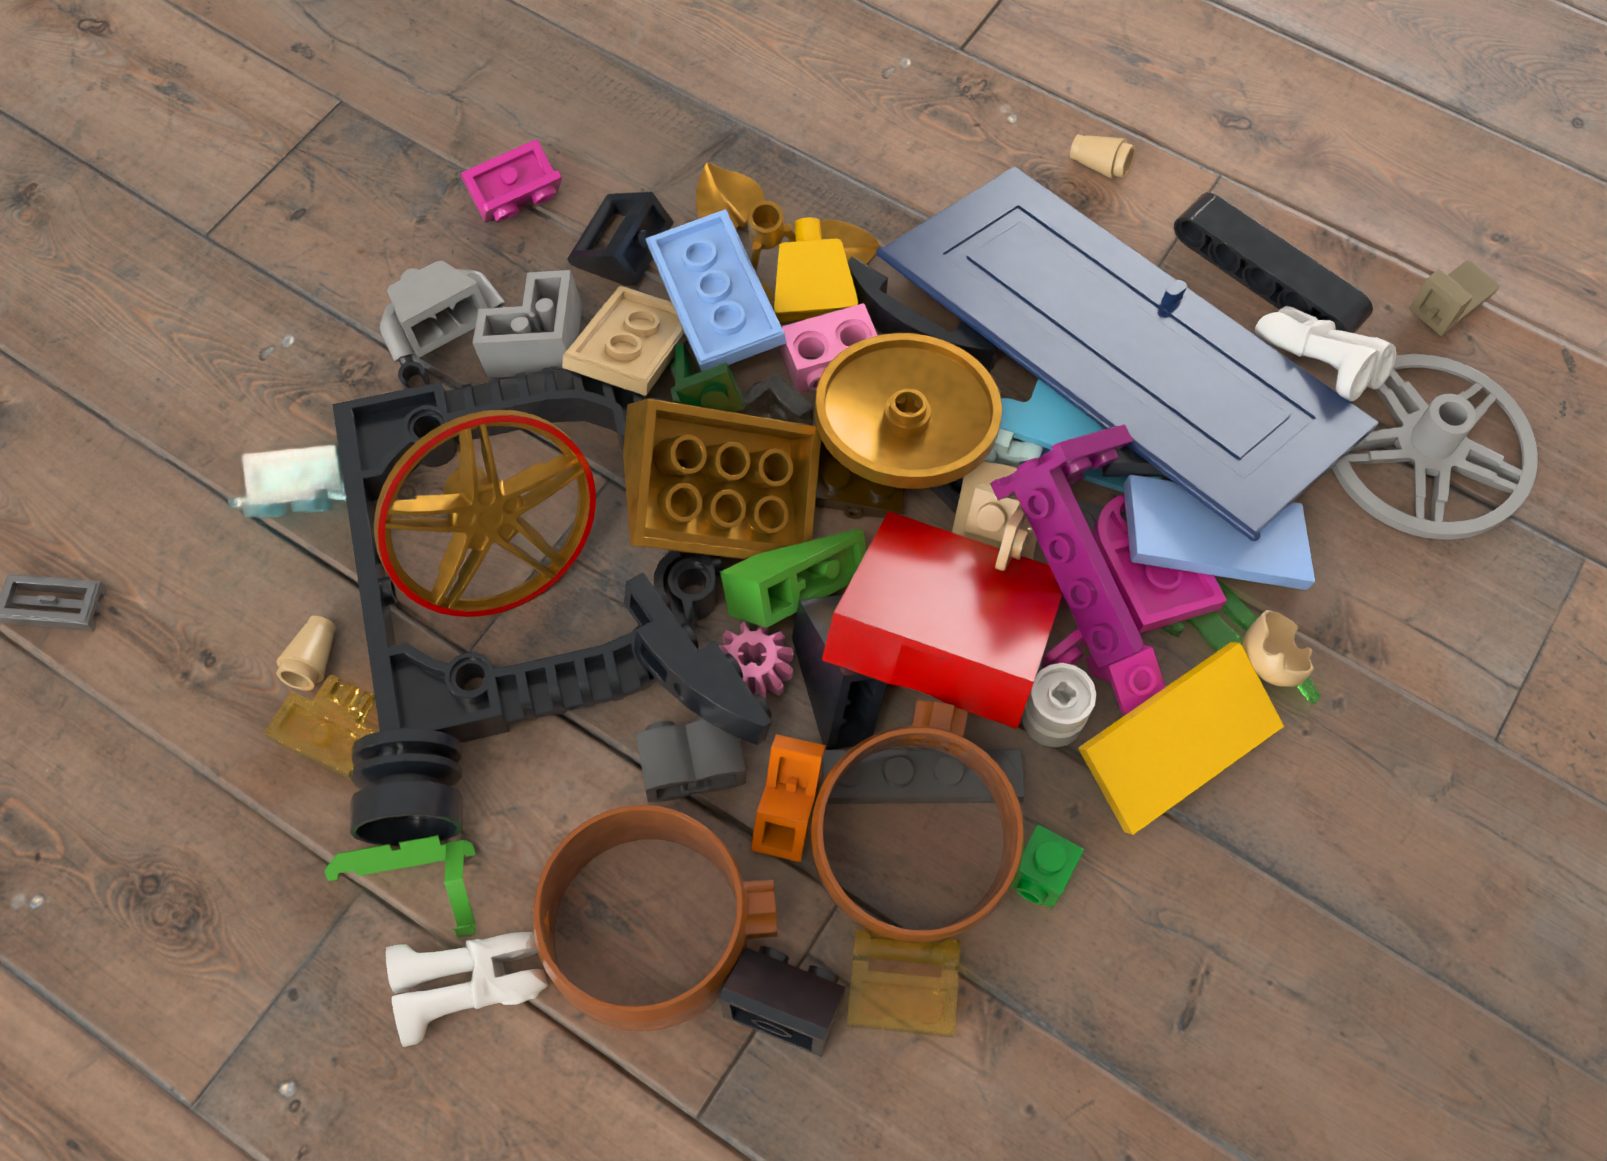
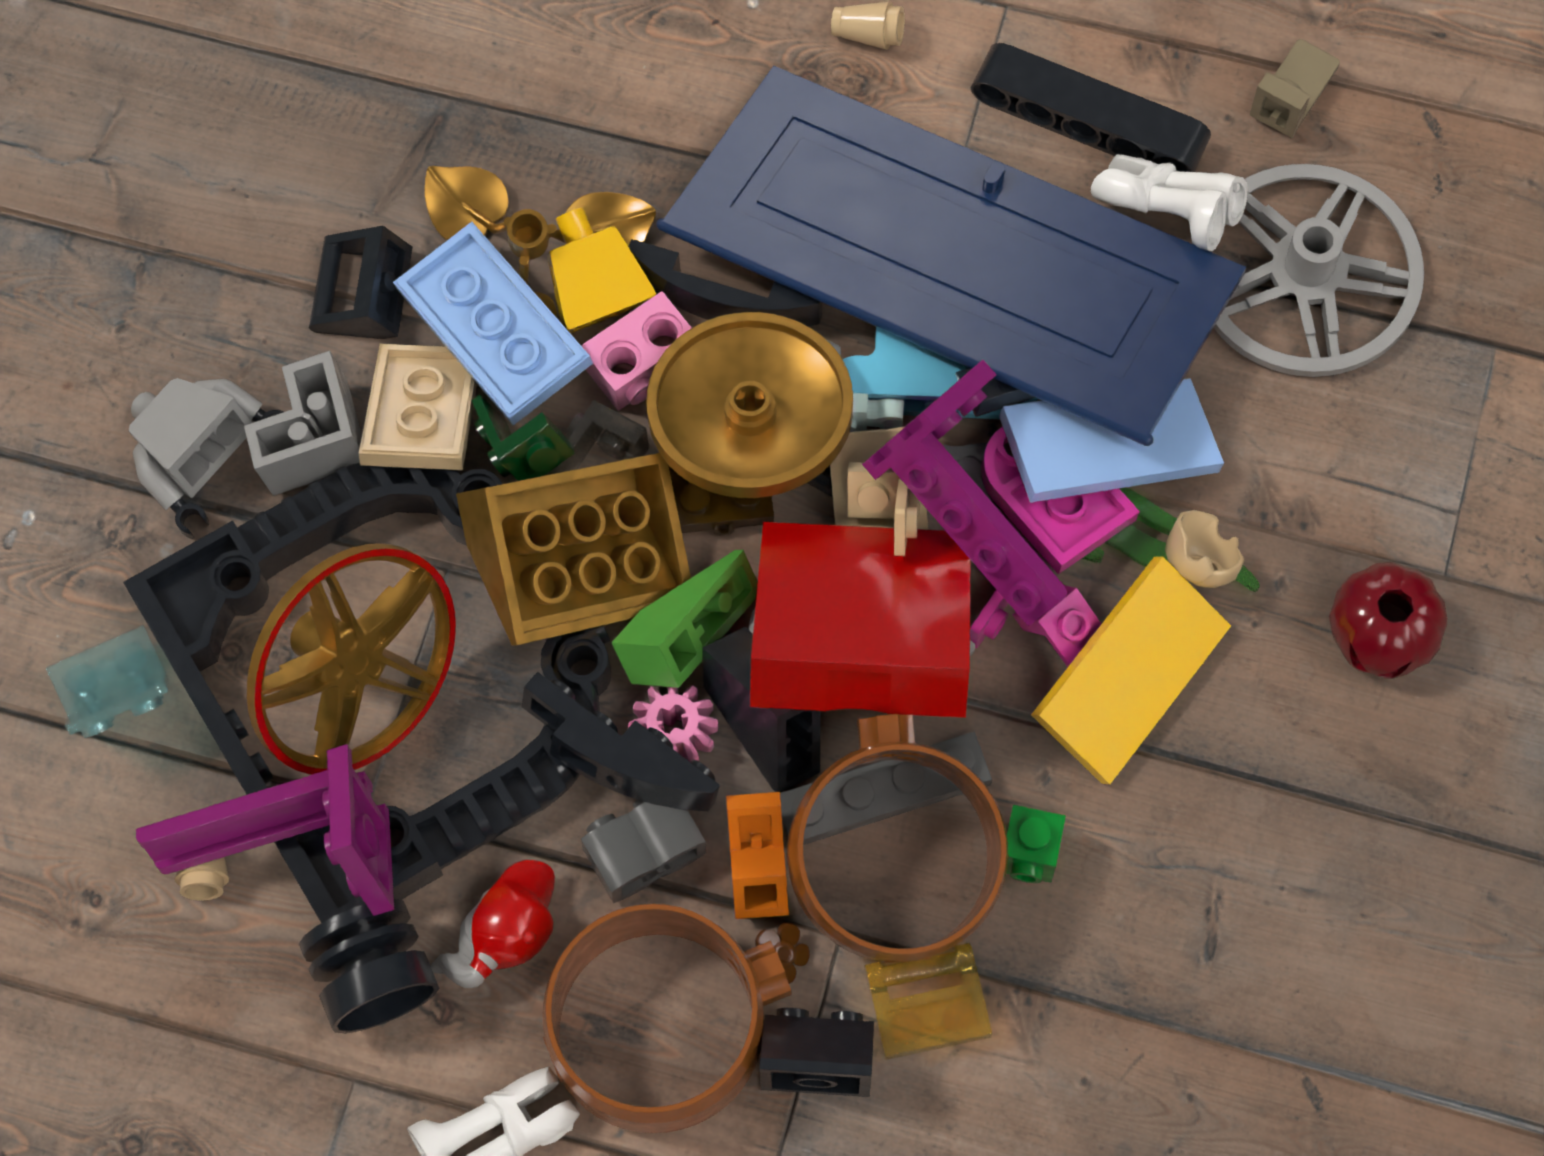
camera: 15 degrees left, 5 degrees up
(325, 726) = (253, 931): clear yellow hinge -> none
(411, 854) = (395, 1029): bright green piece -> none
(420, 635) = (333, 797): none -> magenta bracket
(511, 182) = (211, 253): dark pink bracket -> none
(542, 790) = (504, 927): none -> red hair
(787, 892) = (786, 946): none -> reddish brown plant
(1059, 705) = (1000, 675): white wheel -> none
(1418, 776) = (1372, 641): none -> dark red piece

